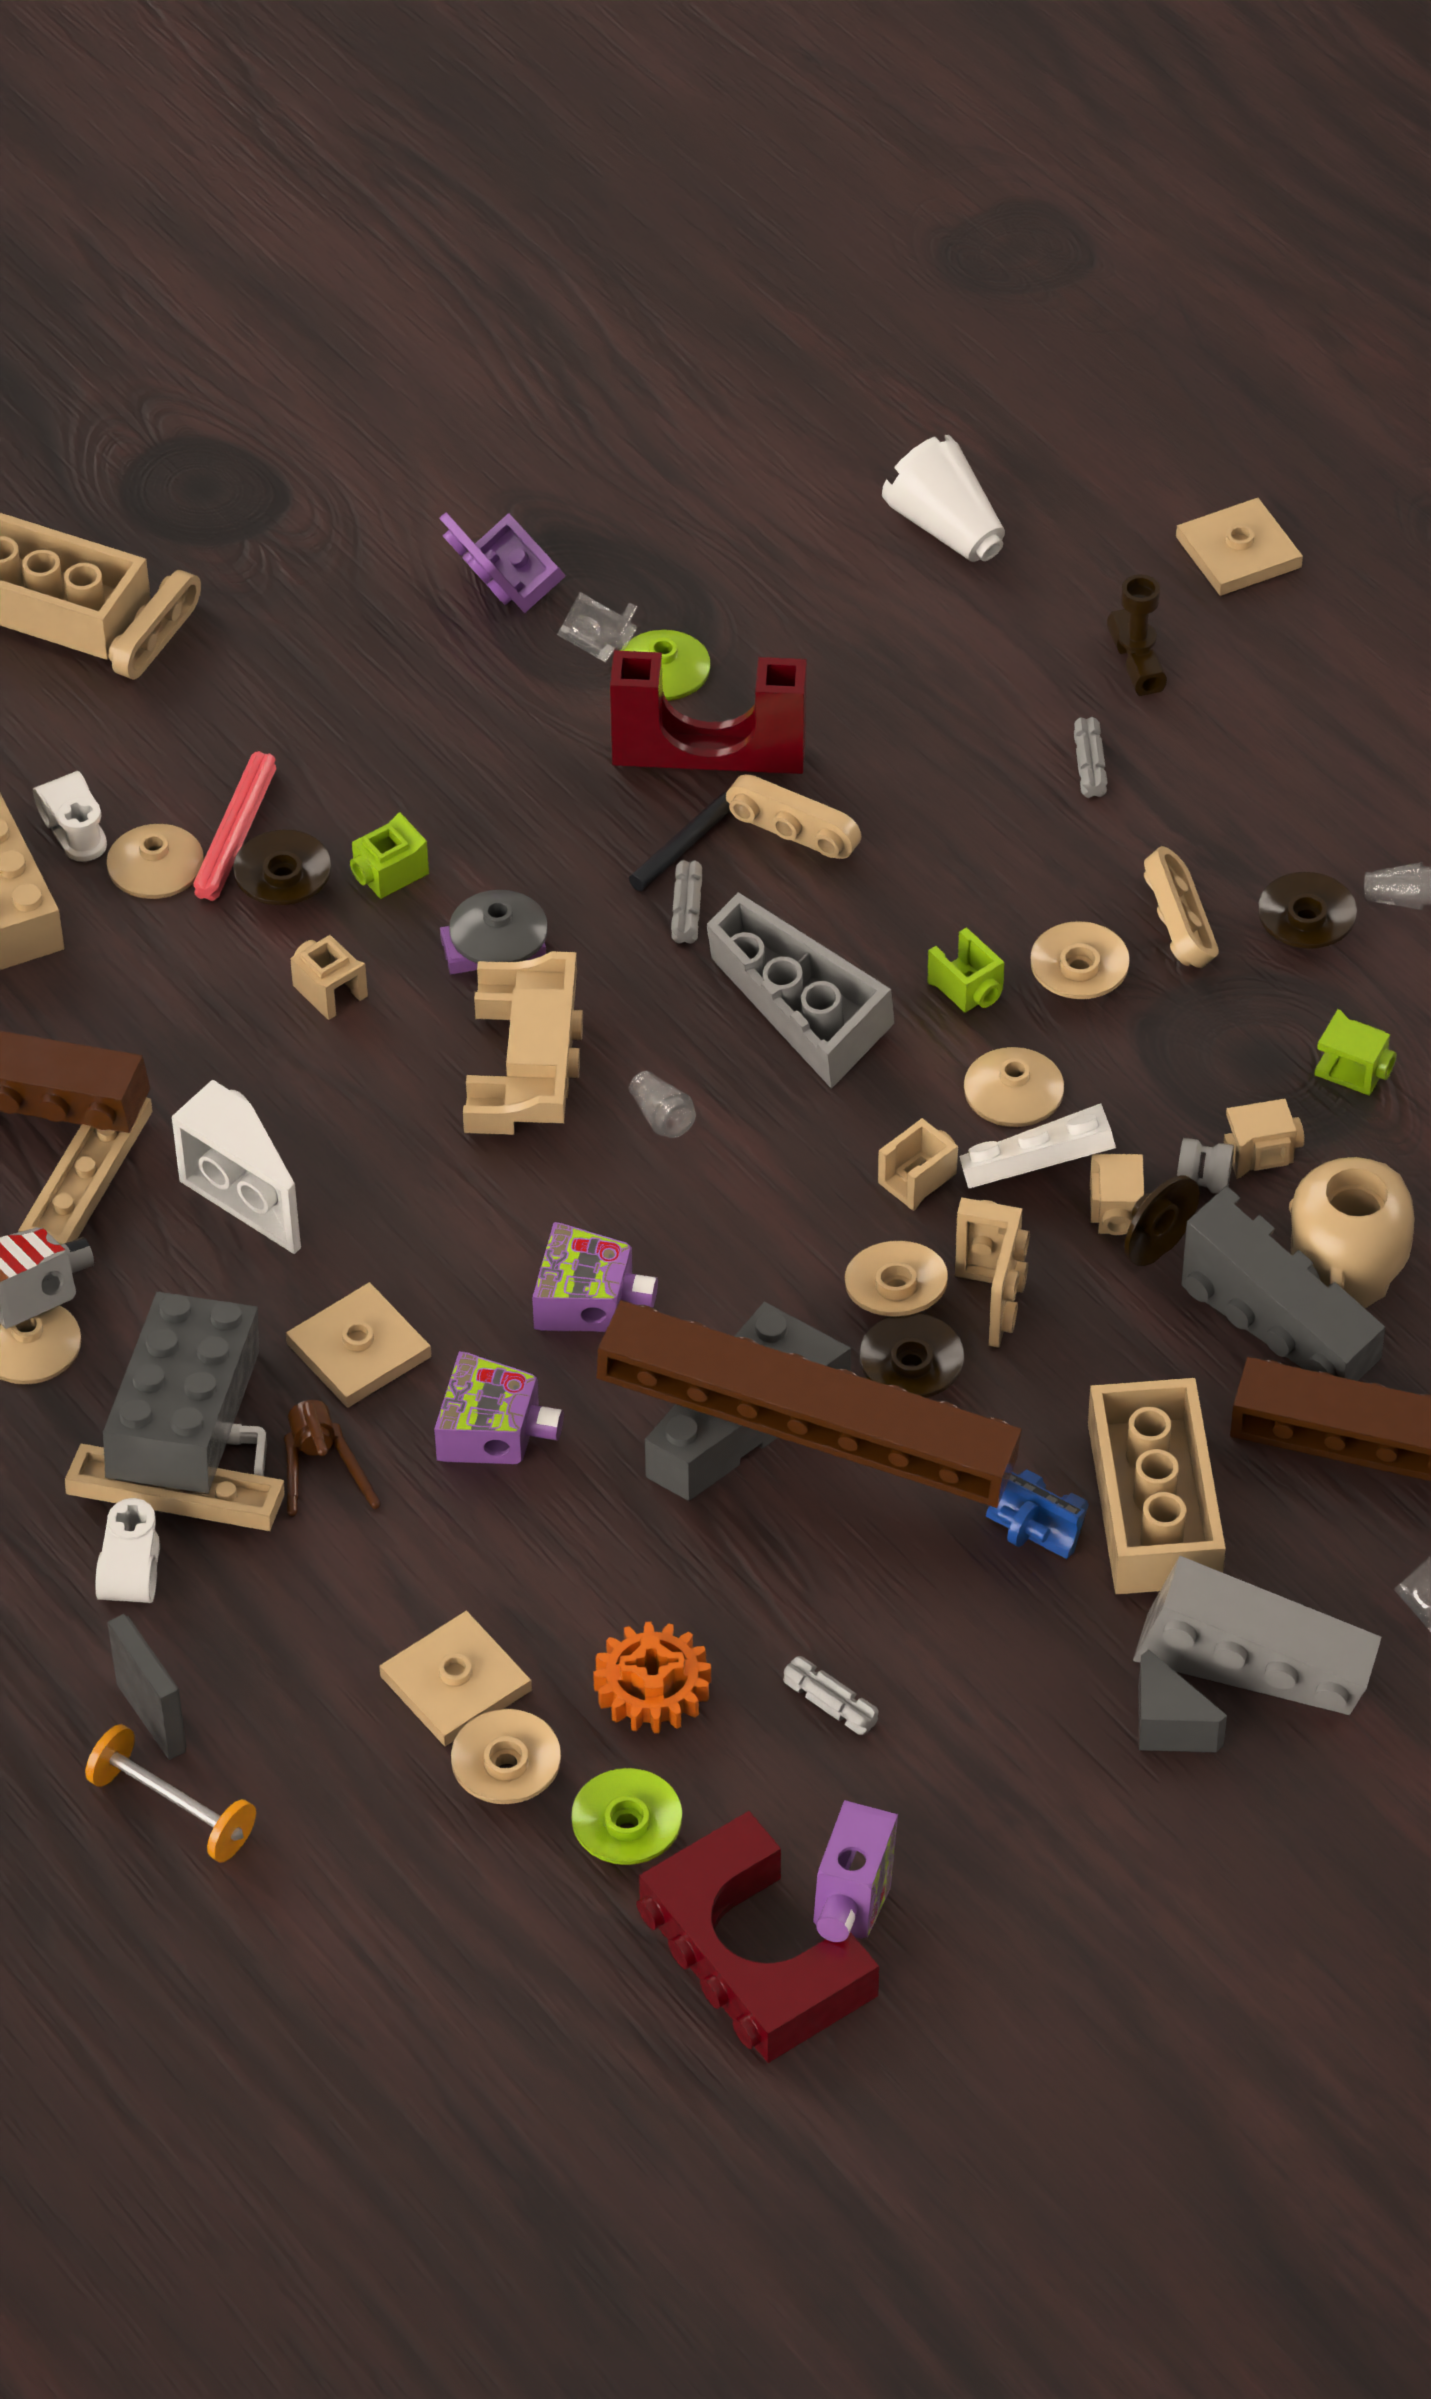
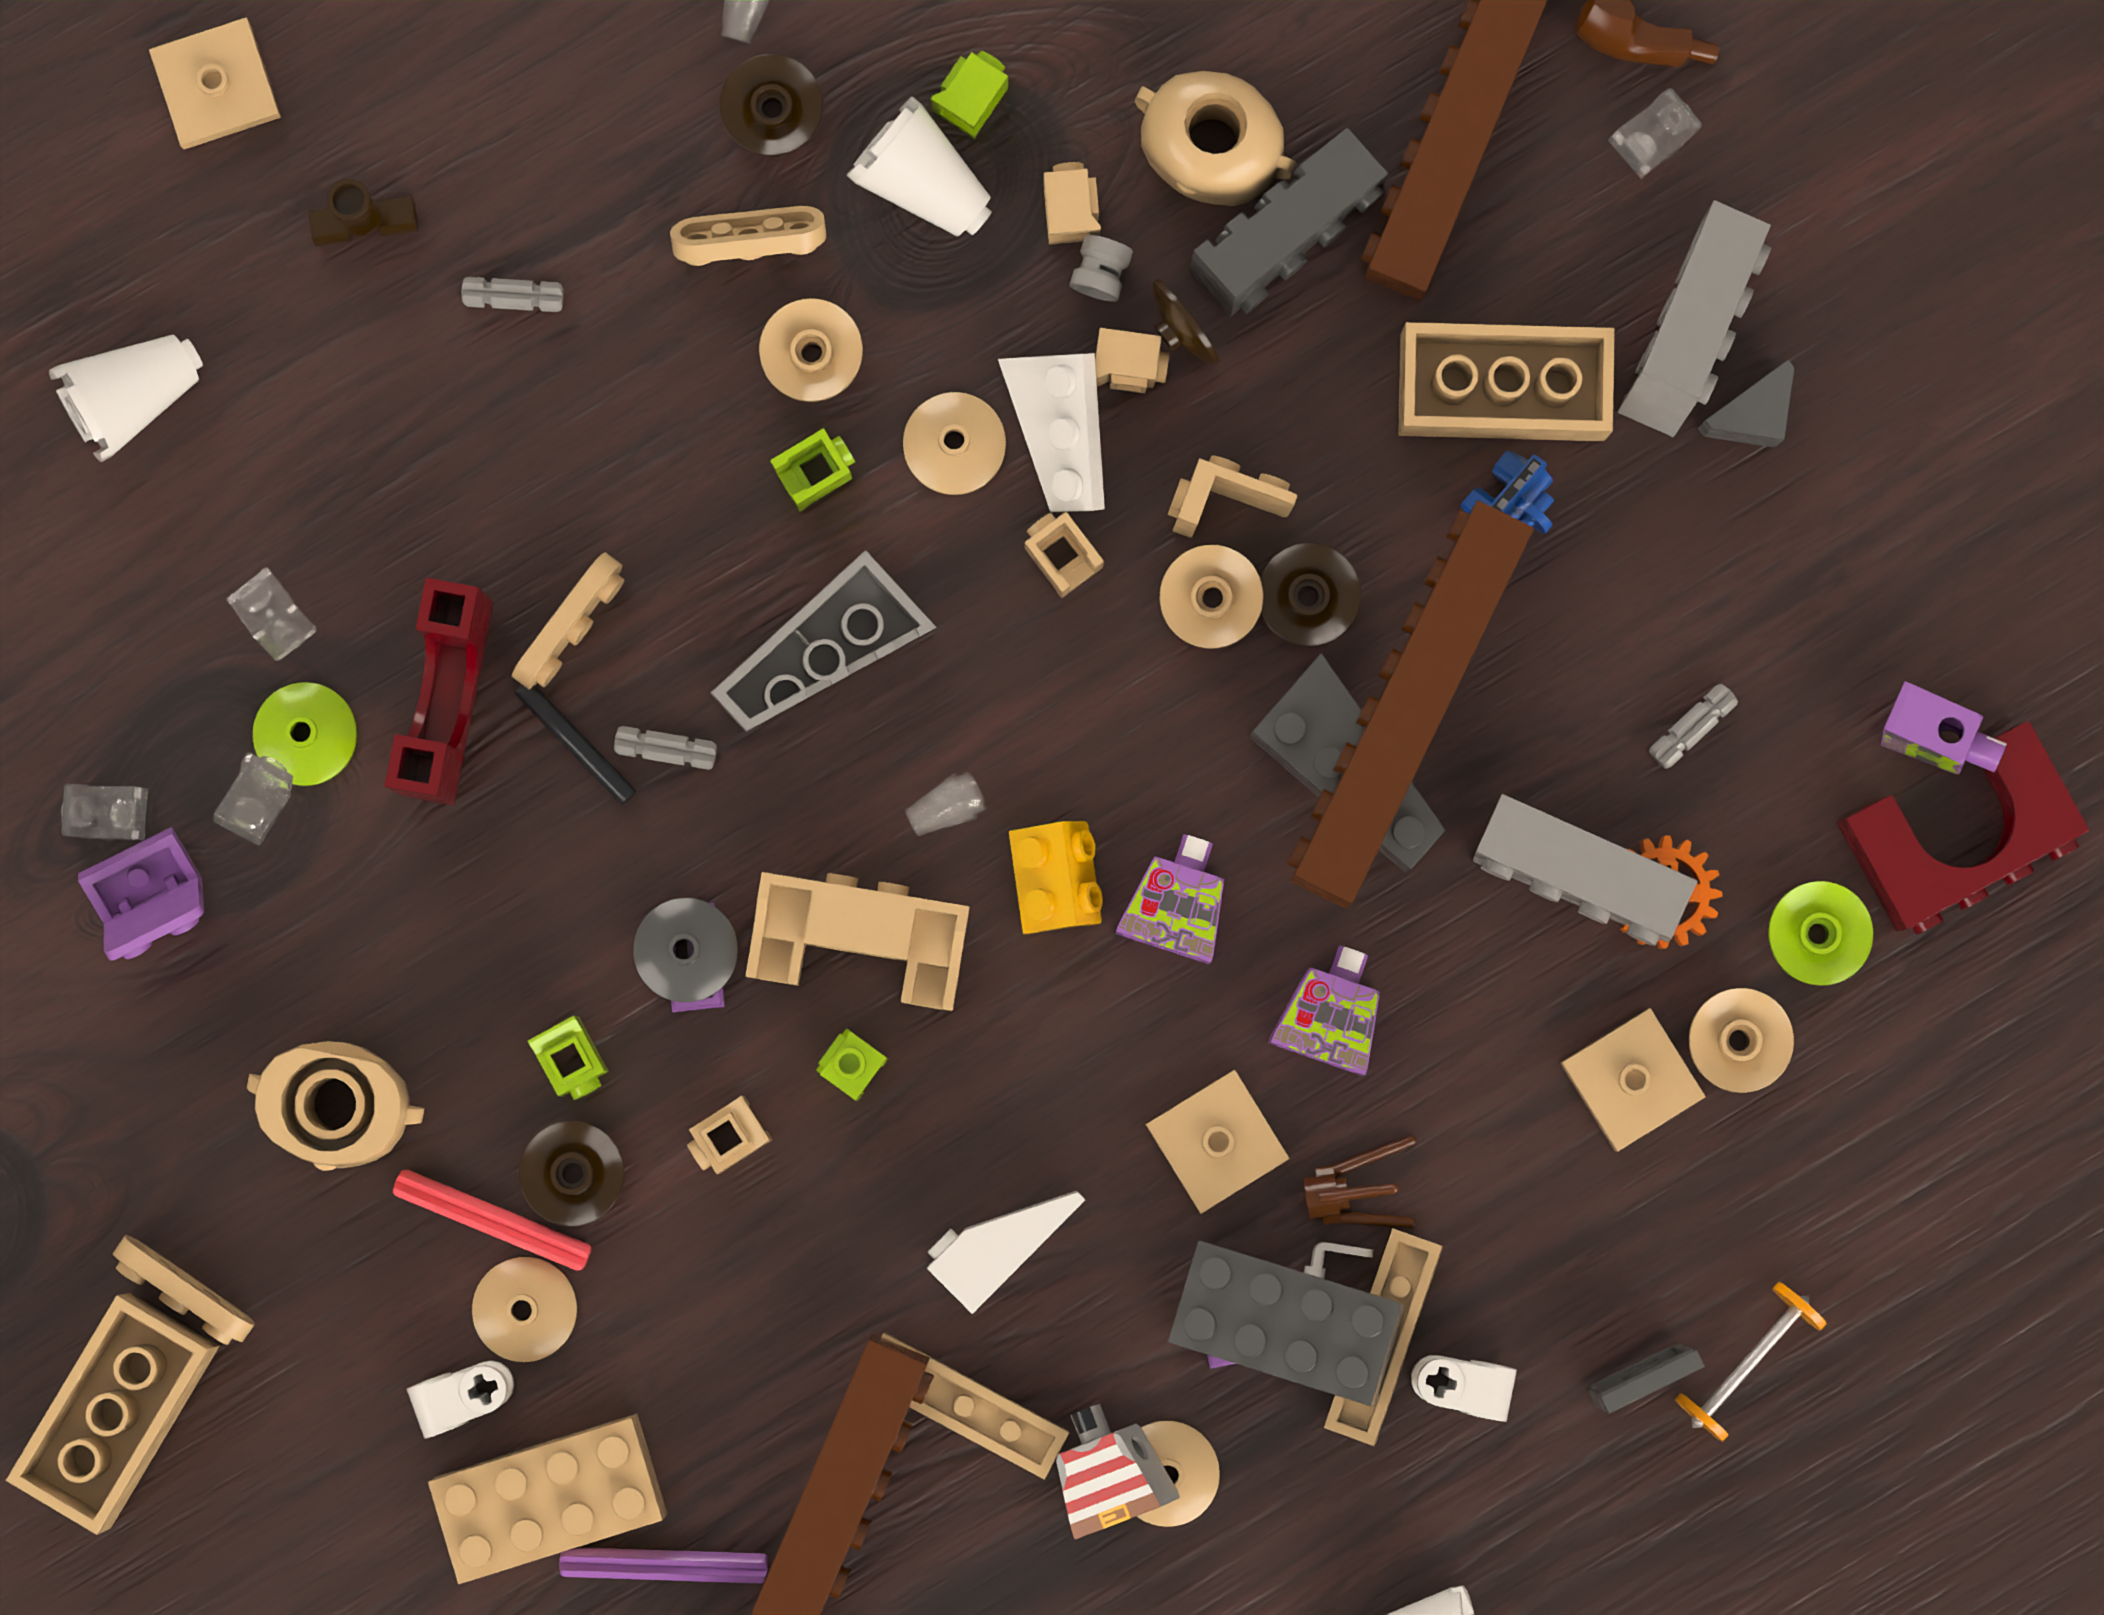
camera: 90 degrees left, 35 degrees up
(328, 686) = (288, 1111): none -> tan piece
(405, 1038) = (851, 1064): none -> lime window
(572, 529) = (104, 812): none -> clear bracket
(606, 1193) = (1055, 876): none -> yellow bracket
(662, 1565) = (1584, 870): none -> light grey wedge
(761, 621) = (271, 614): none -> clear bracket
(1269, 1012) = (922, 173): none -> white cone

